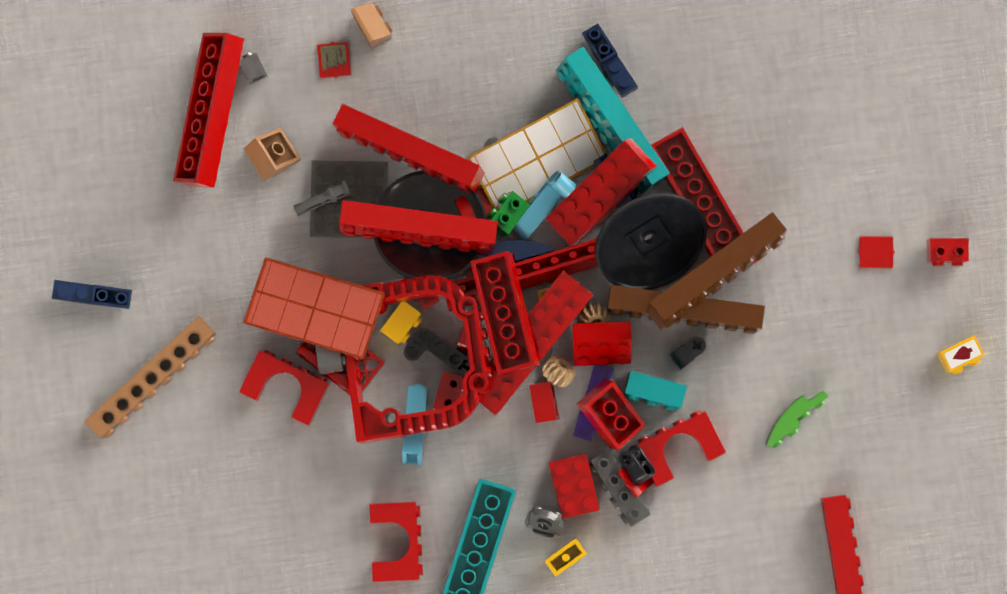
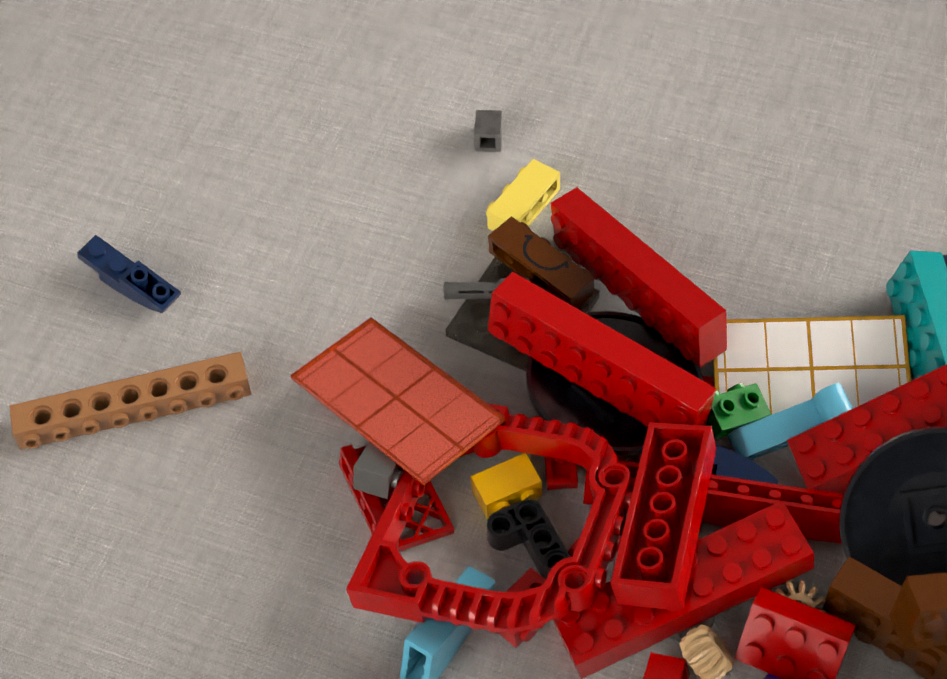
camera: 35 degrees right, 30 degrees down
(208, 110) = (404, 143): red brick -> none
(271, 153) = (454, 223): medium nougat slope -> none
(304, 113) = (525, 195): none -> light yellow brick
(312, 388) = (290, 458): red arch -> none
(334, 60) = (593, 166): piece -> none
(344, 164) = (544, 265): none -> reddish brown brick
(371, 25) = (662, 140): slope -> none

